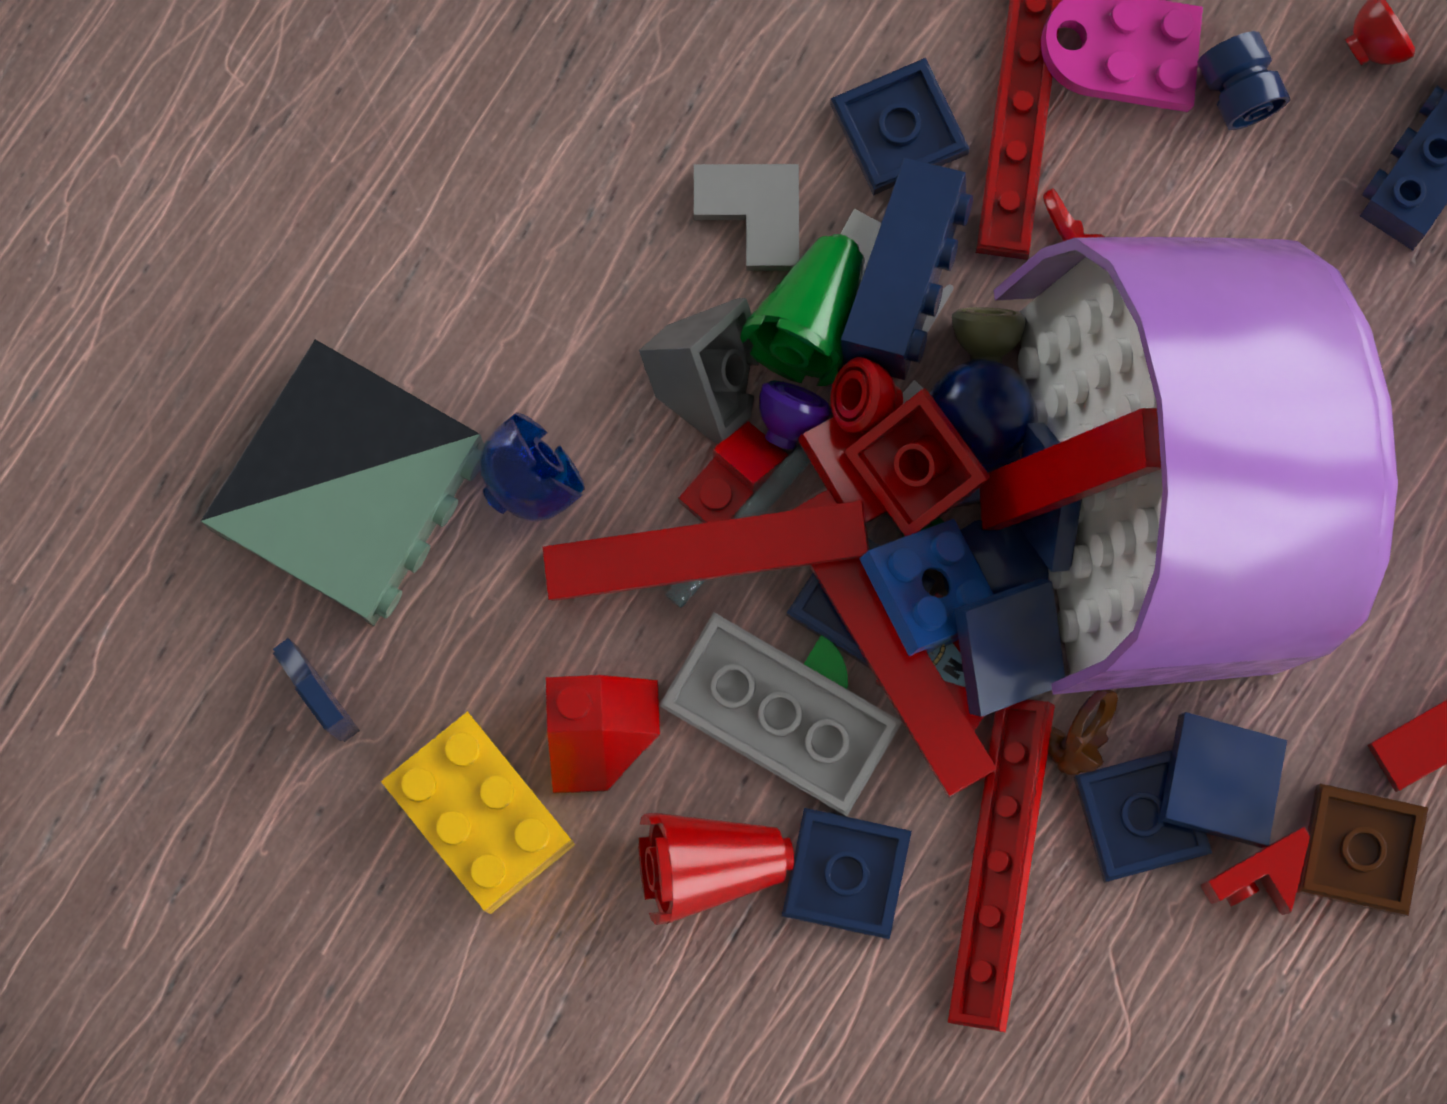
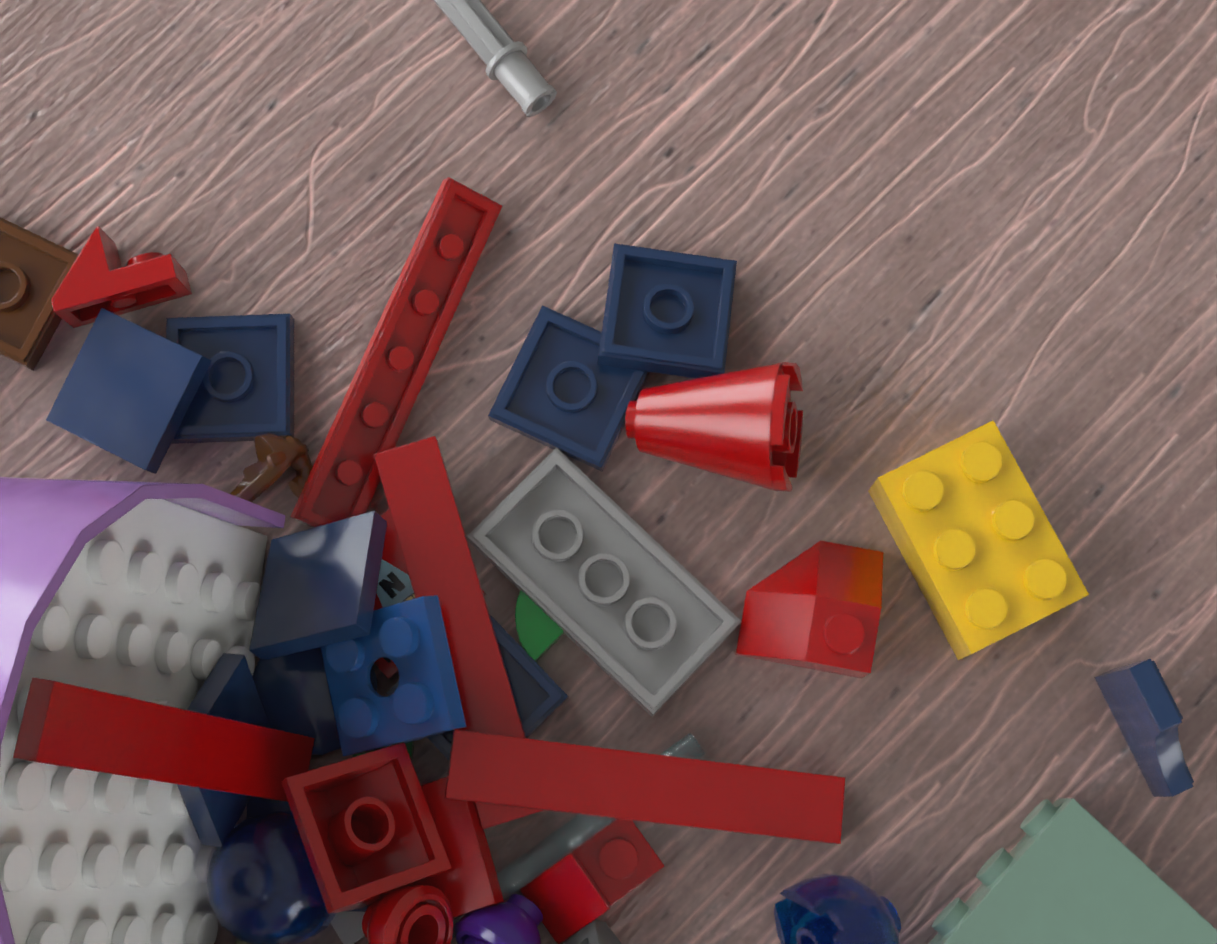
camera: 165 degrees left, 0 degrees up
(779, 956) = (667, 312): none -> dark blue tile

